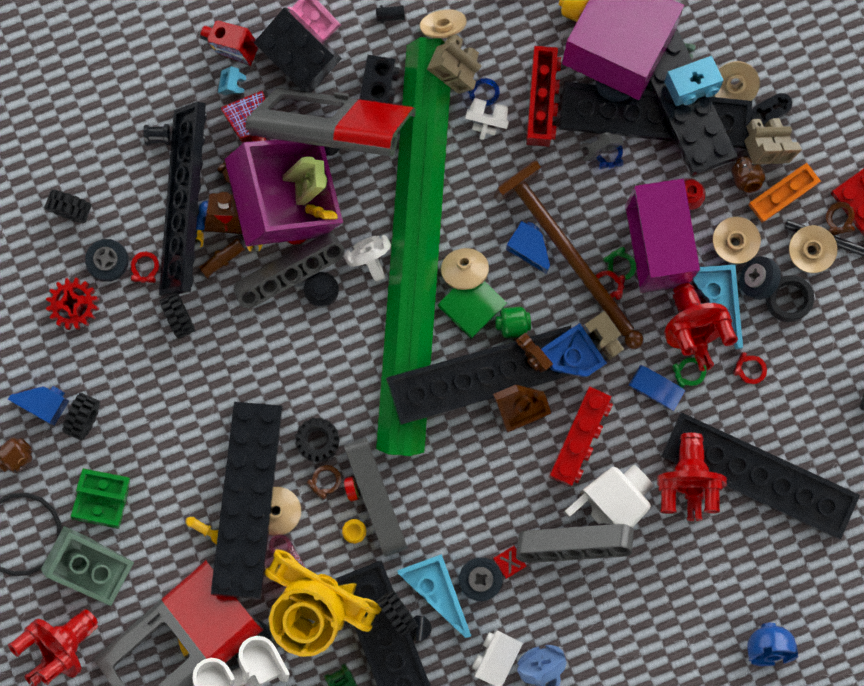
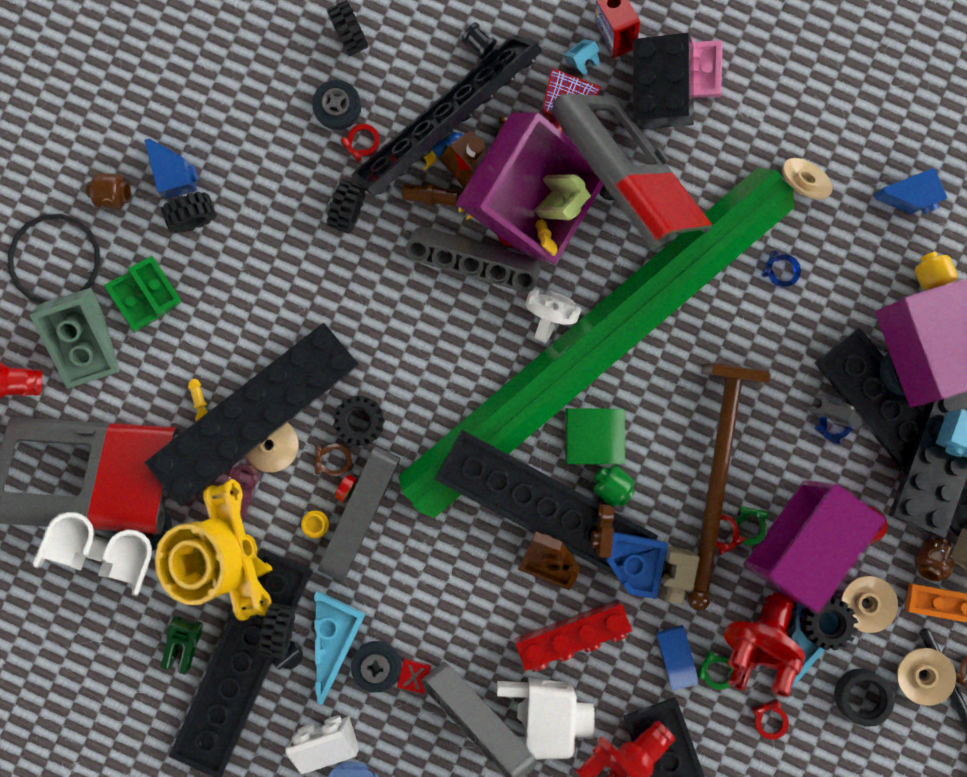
camera: 50 degrees right, 5 degrees up
(70, 294) = (274, 101): red gear -> none
(321, 289) = (484, 301): black plate -> none
(374, 82) = (699, 170): black brick -> none
(390, 13) = (770, 126): black pin -> none
(455, 65) = (782, 223): dark tan hips -> none
(464, 276) = (611, 408): tan dish -> none
(477, 114) = (771, 304): white hips -> none
(529, 246) = (691, 436): blue slope -> none
(542, 93) = (830, 320): red brick -> none
(732, 264) = (840, 635): none -> black tyre
(760, 278) = (857, 667): black wheel -> none

